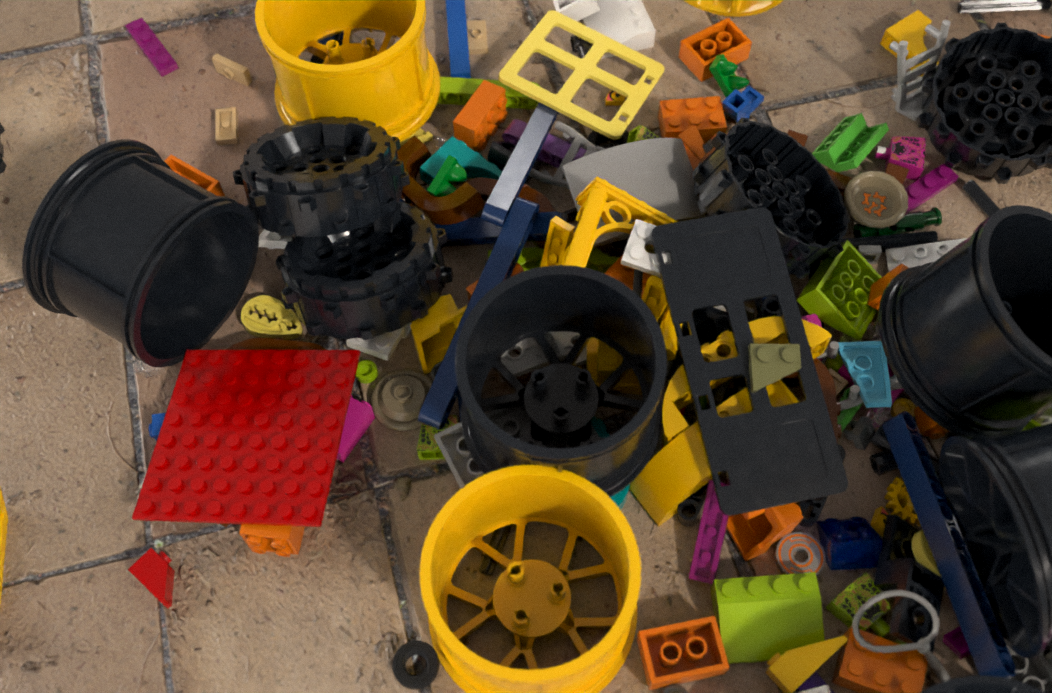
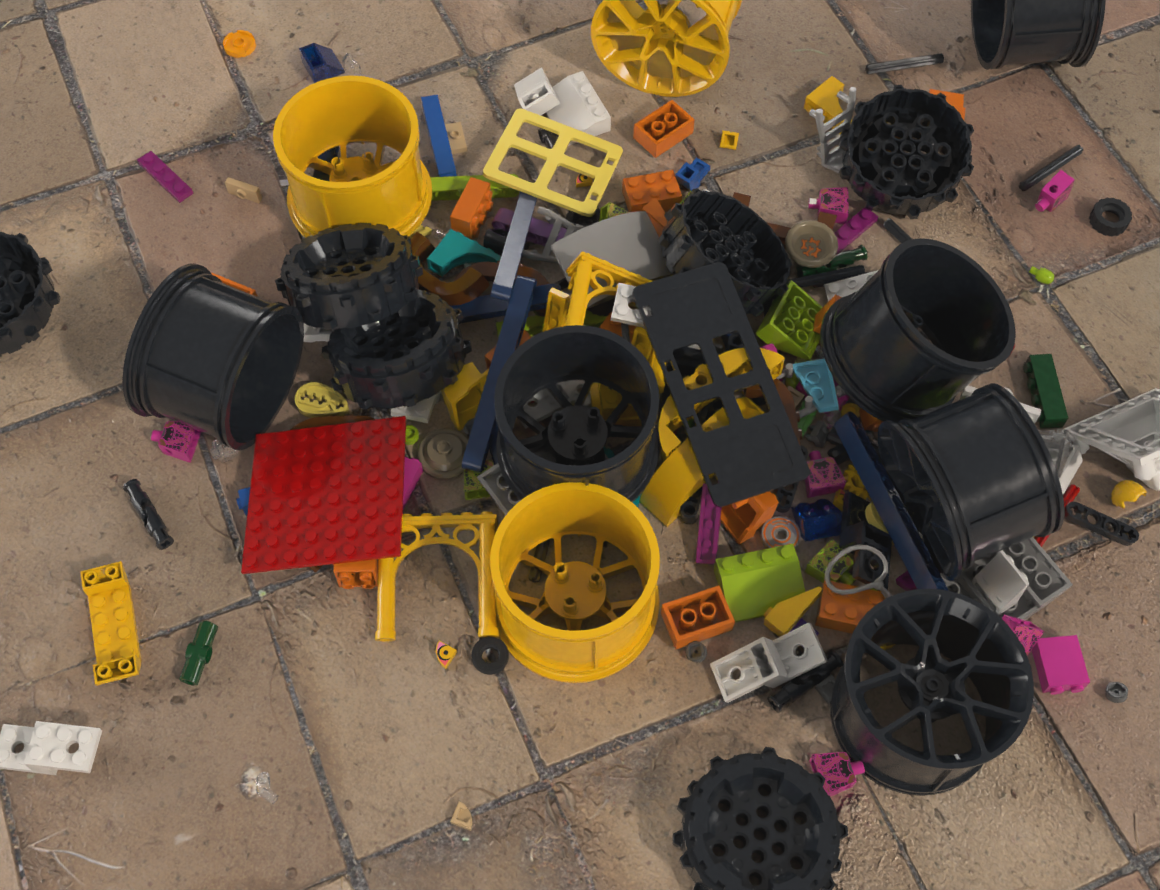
camera: 10 degrees left, 0 degrees up
(50, 441) = (149, 515): none -> black piece
(65, 611) = (198, 653): none -> dark green piece
(96, 347) = (177, 440): none -> dark pink torso
(156, 575) = (266, 616): red slope -> none
(226, 126) = (248, 241): tan plate -> none
(308, 537) = (387, 567): none -> yellow arch
(360, 654) = (445, 654): none -> yellow tile
(449, 171) = (453, 260): green tile -> none
(724, 75) = (674, 149): green tile -> none
(772, 363) = (740, 384): olive wing -> none
(789, 70) = (729, 140): none -> yellow slope
(849, 143) = (785, 198): bright green slope -> none
(864, 487) = (824, 476): none -> dark pink torso
(870, 252) = (812, 289): light grey tile -> none

